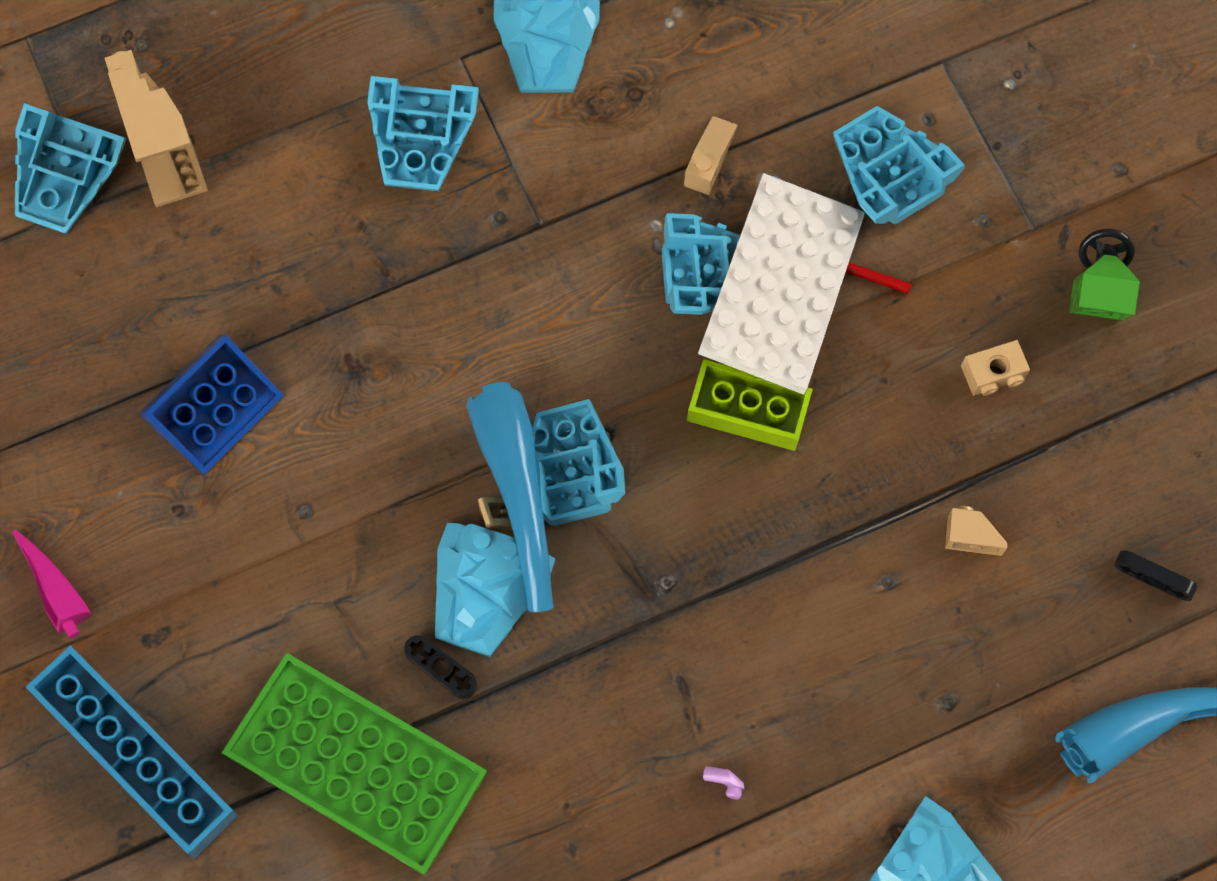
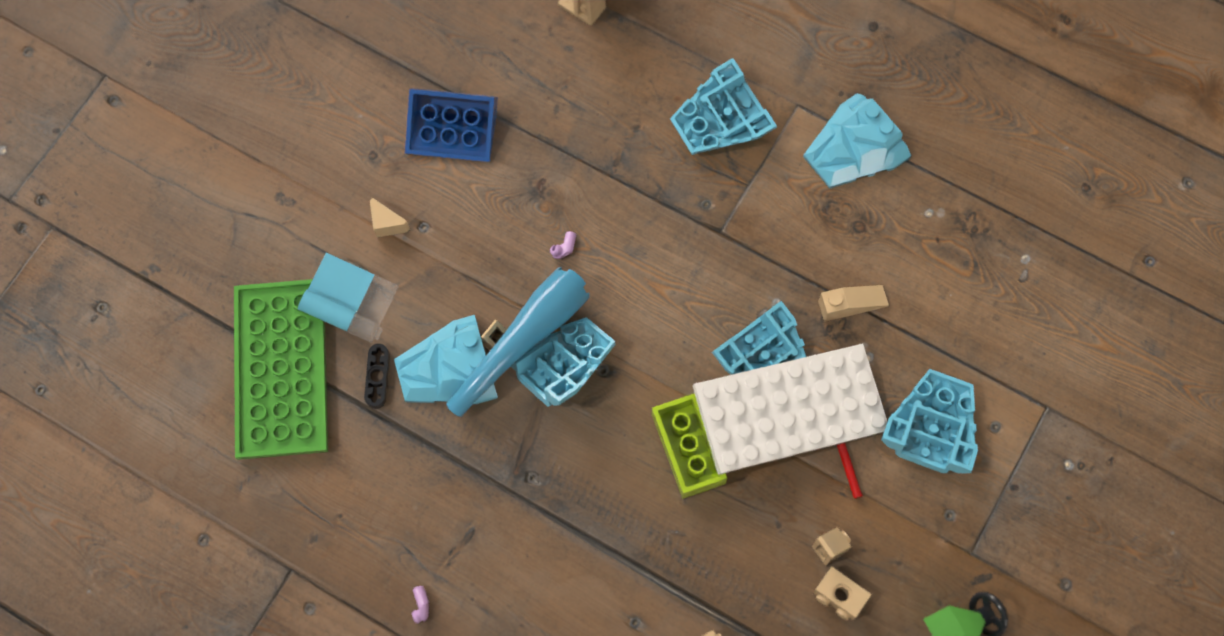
camera: 60 degrees right, 0 degrees up
(58, 595) = (273, 124): dark pink piece -> none
(132, 752) = (199, 235): dark azure brick -> none
(269, 543) = (386, 221): none -> tan slope
(331, 638) = (348, 298): none -> medium azure door
(443, 385) = (566, 248): none -> lavender arm
(944, 344) = (831, 545): none -> tan slope

